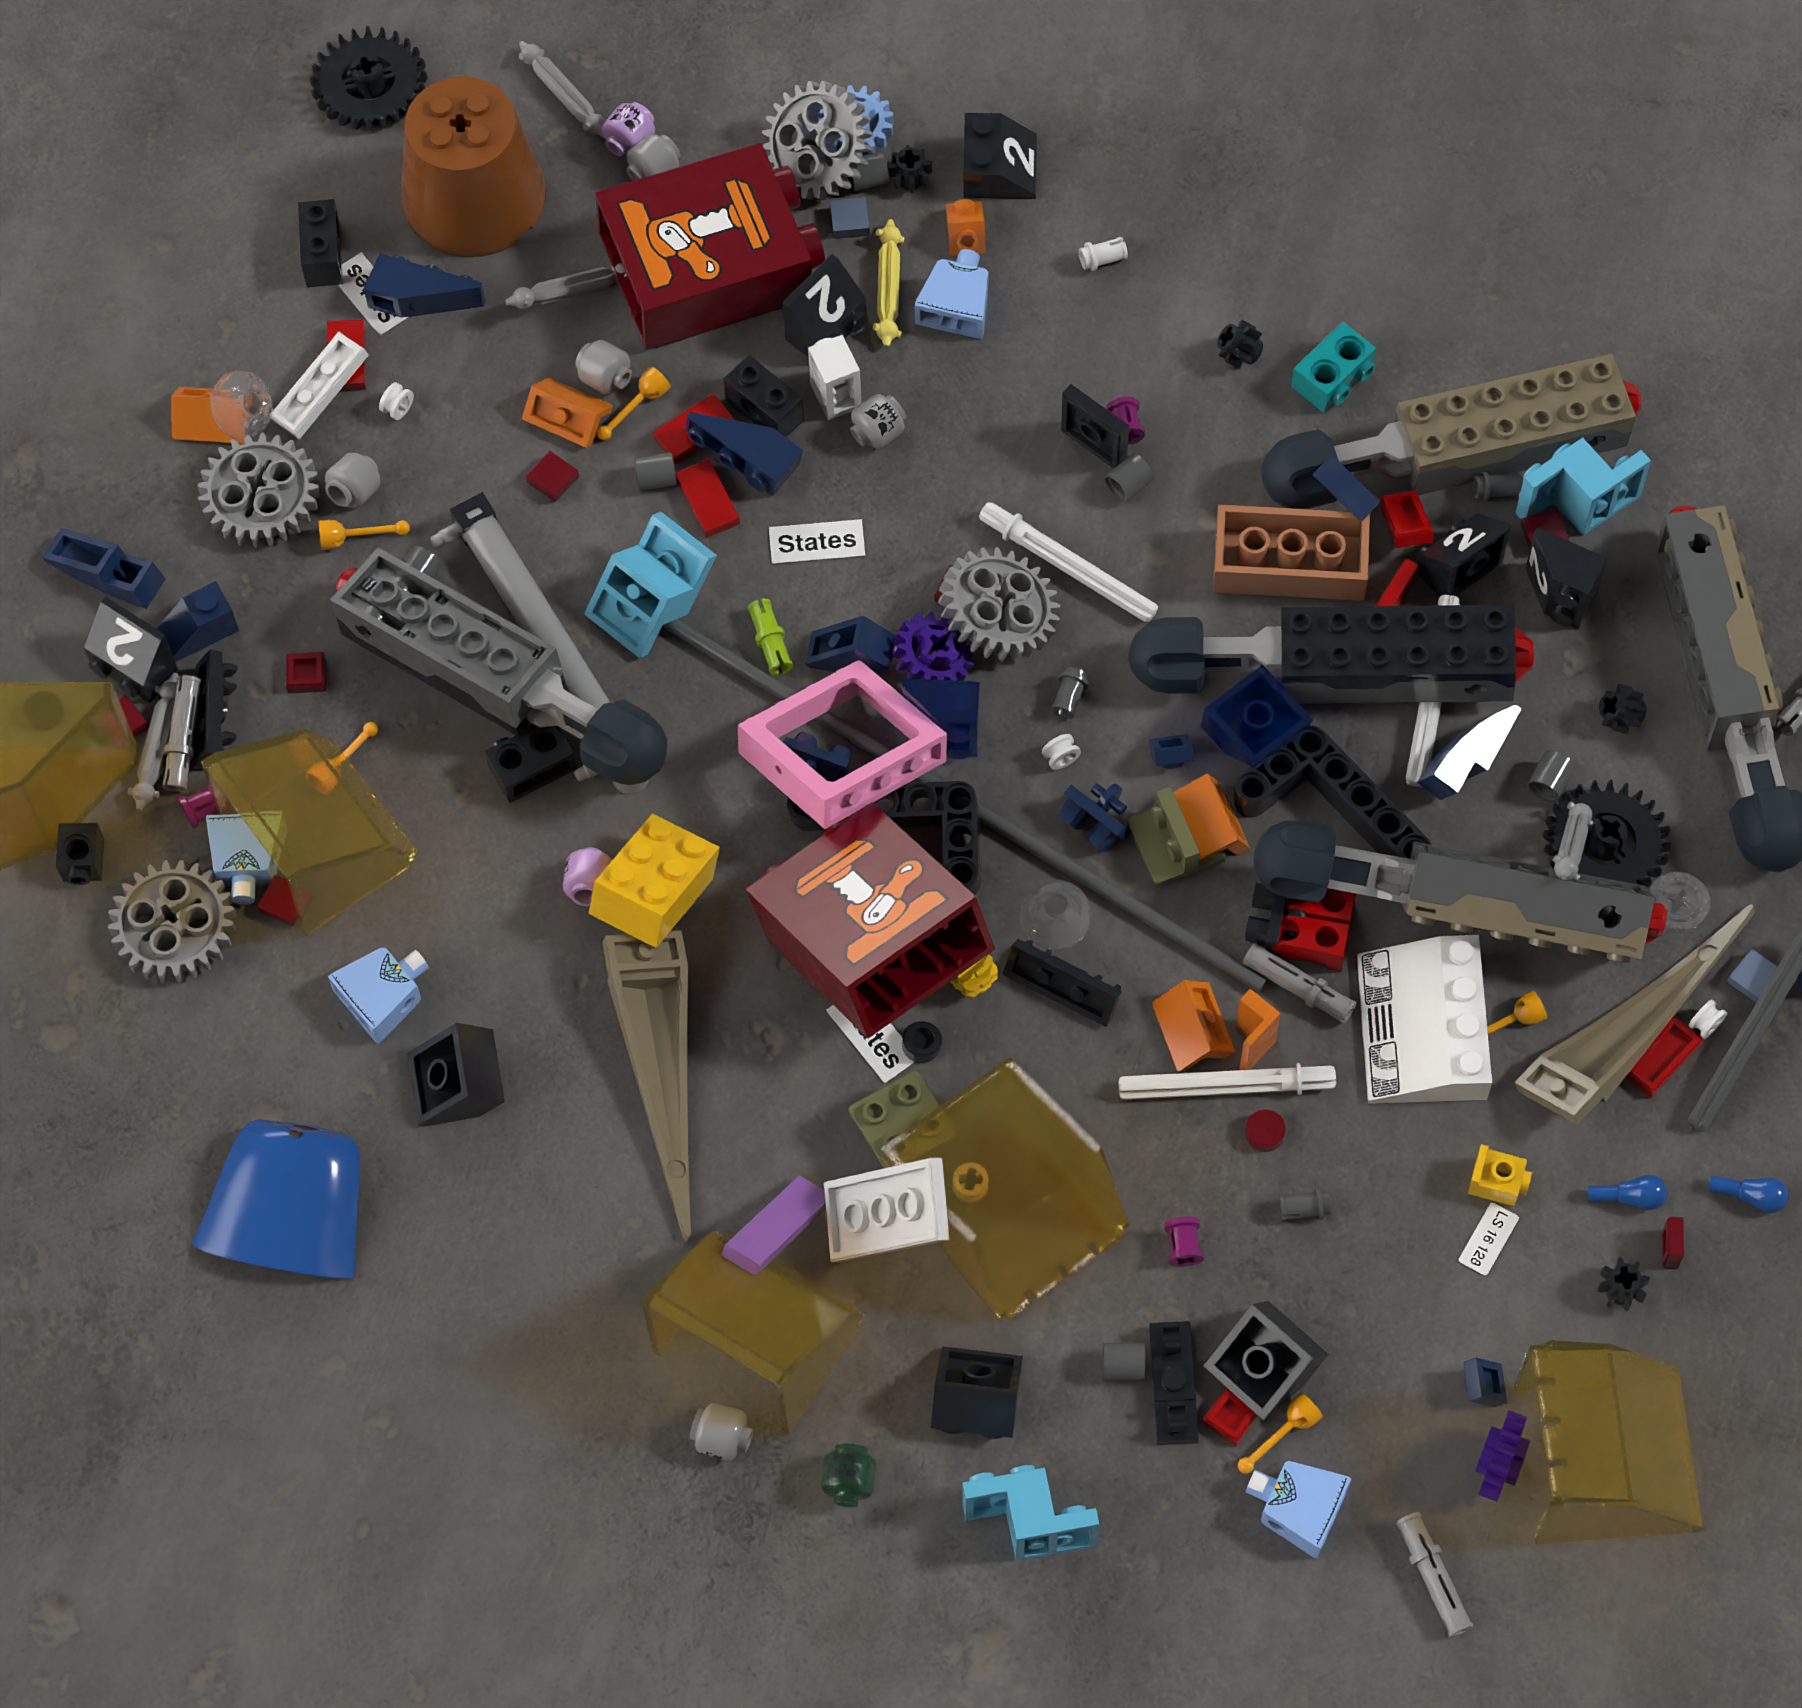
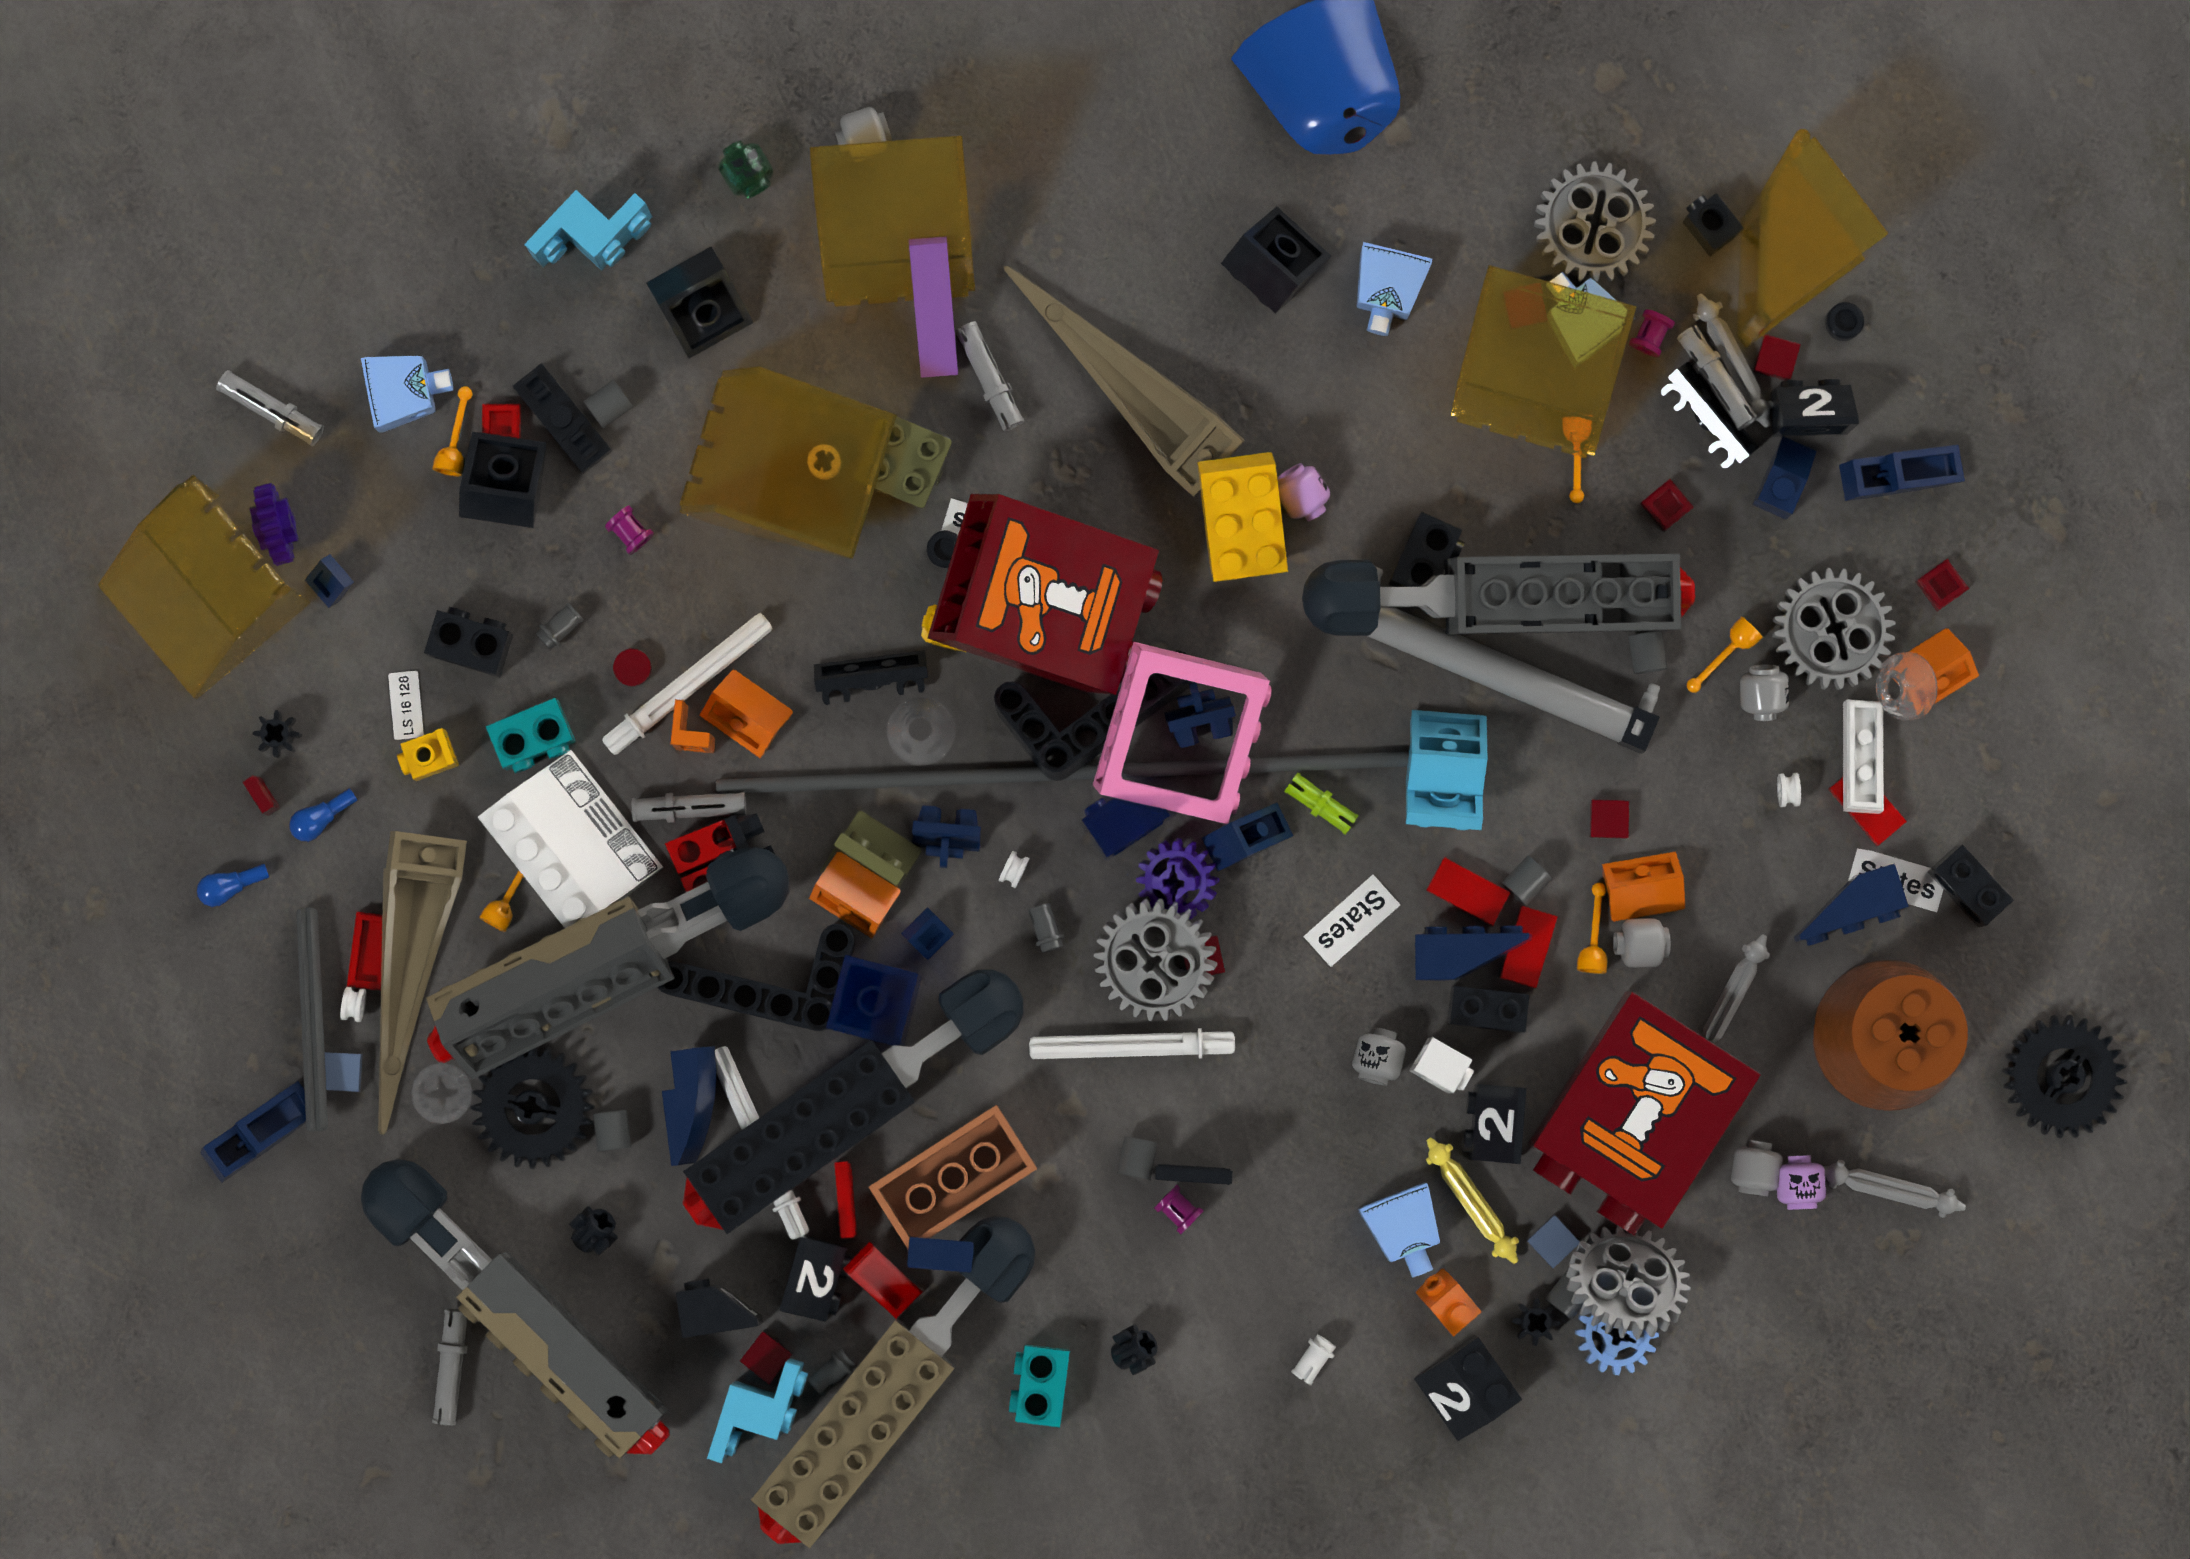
camera: 140 degrees right, 20 degrees up
(147, 470) = (1942, 585): none -> dark red tile
(776, 1139) = (992, 382): none -> light grey pin
(886, 1210) = (856, 370): white tile -> none
(1393, 1141) = (528, 726): none -> teal brick
(1405, 1239) = (466, 651): none -> black brick
(1573, 841) = (543, 1059): light grey wheel -> none

